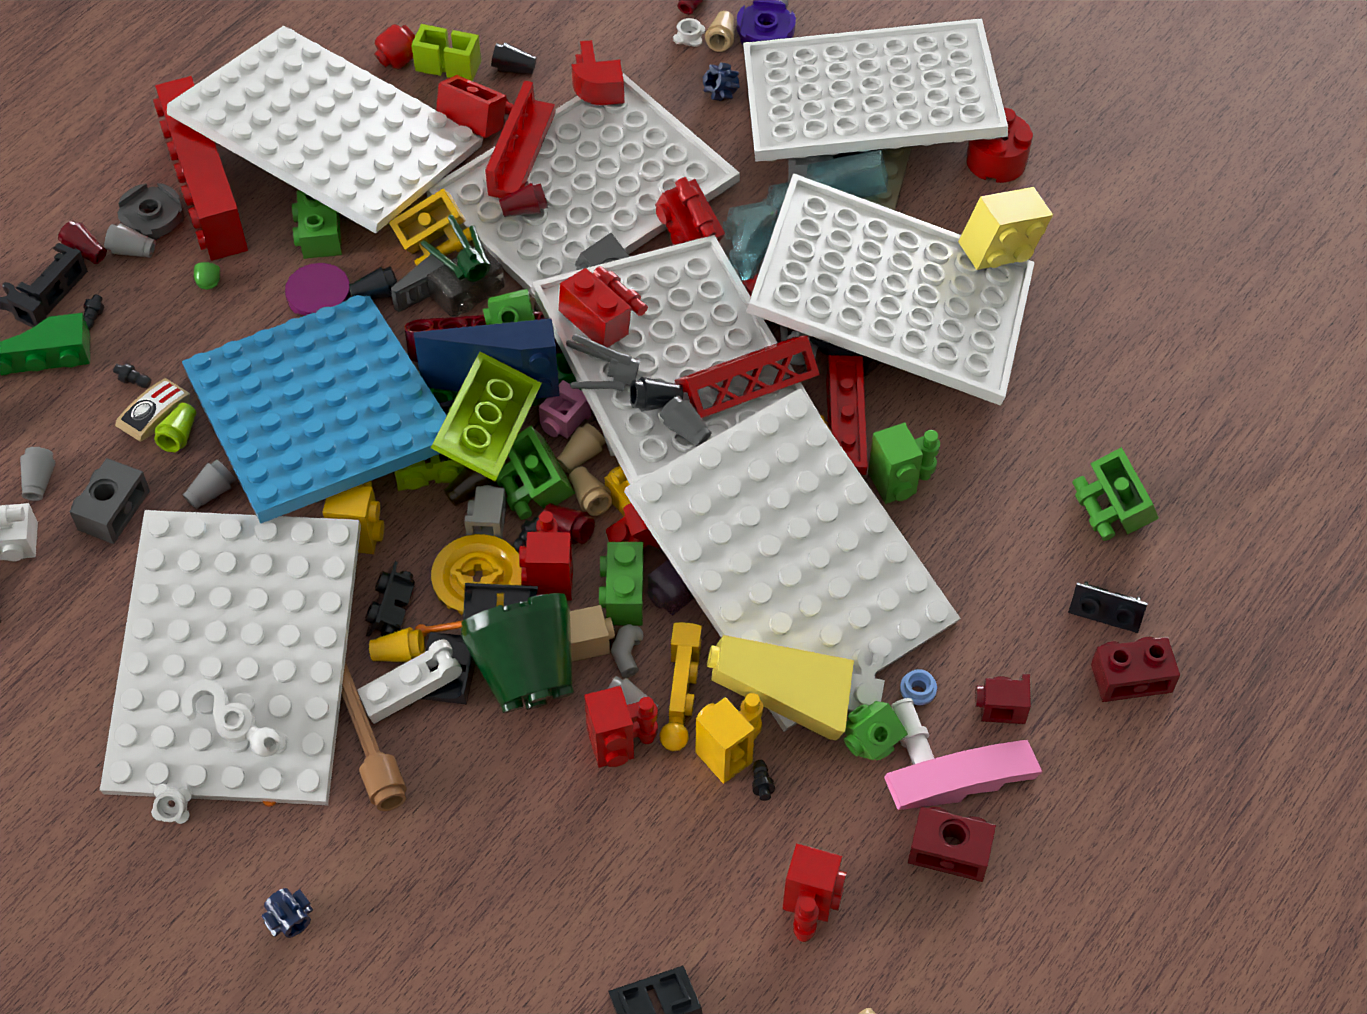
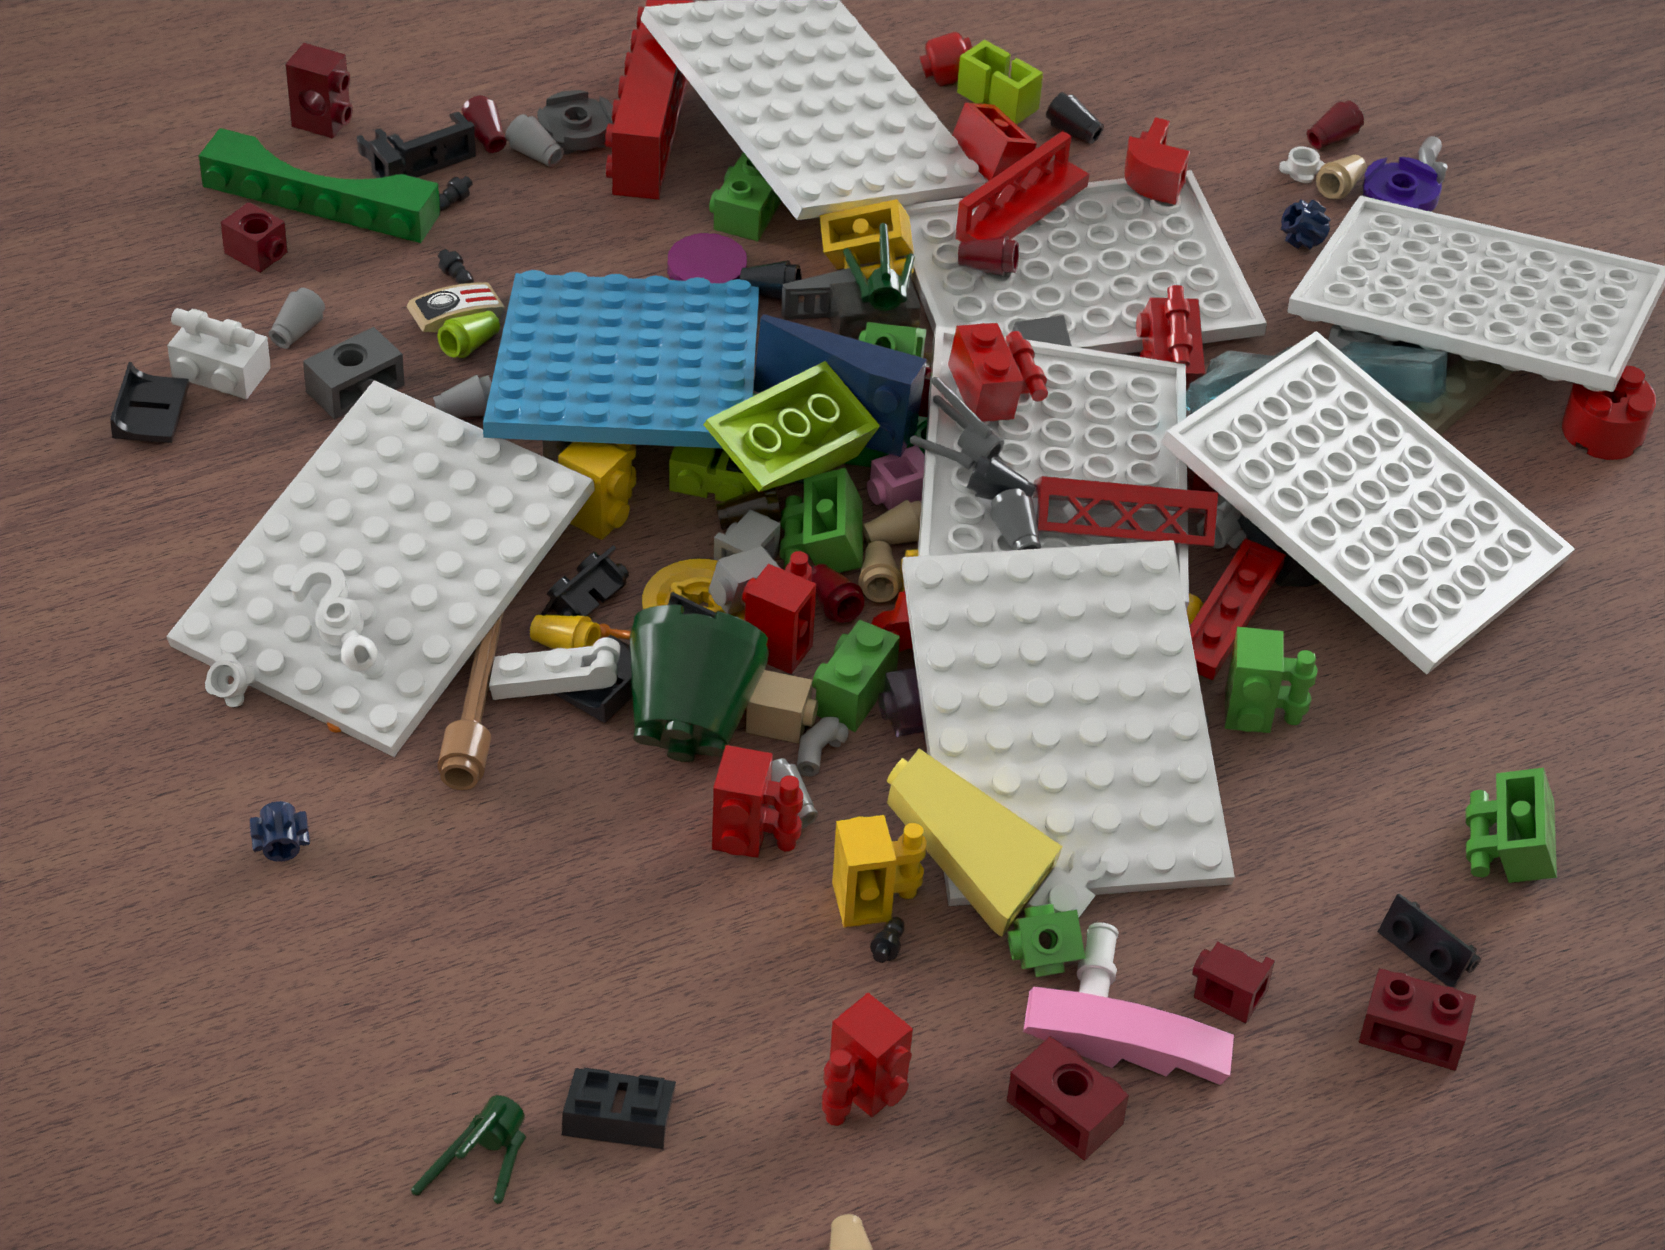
camera: 25 degrees right, 10 degrees down
(206, 275) = (596, 202): bright green hinge -> none
(503, 546) = (733, 574): none -> light grey brick
(686, 654) = (859, 797): yellow plate -> none
(922, 679) = (1139, 916): light blue plate -> none
(1005, 228) = (1546, 485): light yellow brick -> none

